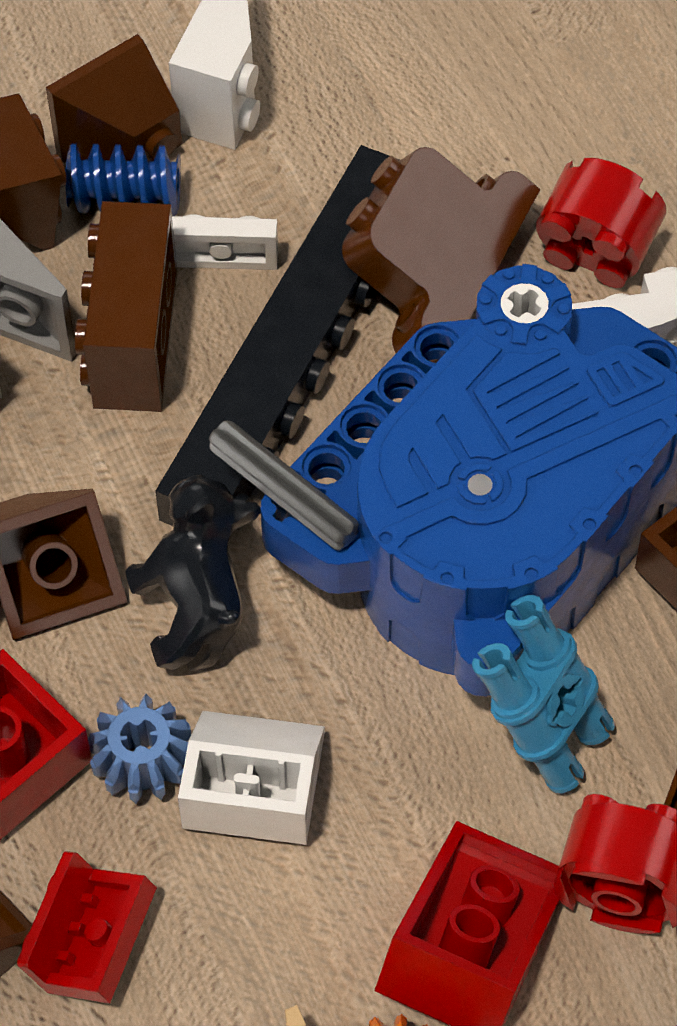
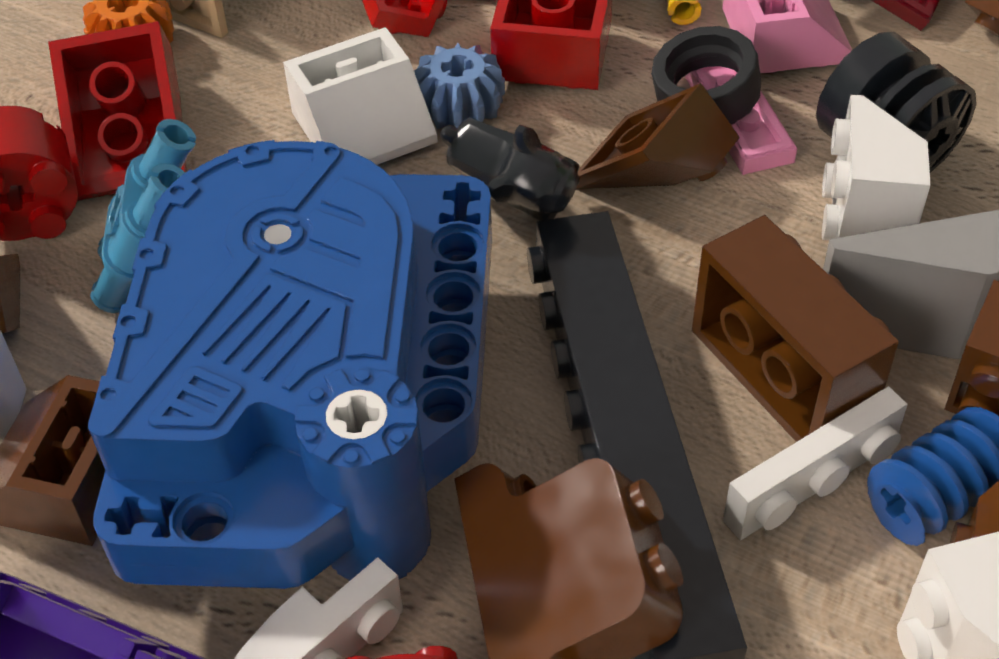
camera: 145 degrees right, 10 degrees down
(283, 485) = (483, 190): dark grey axle -> none

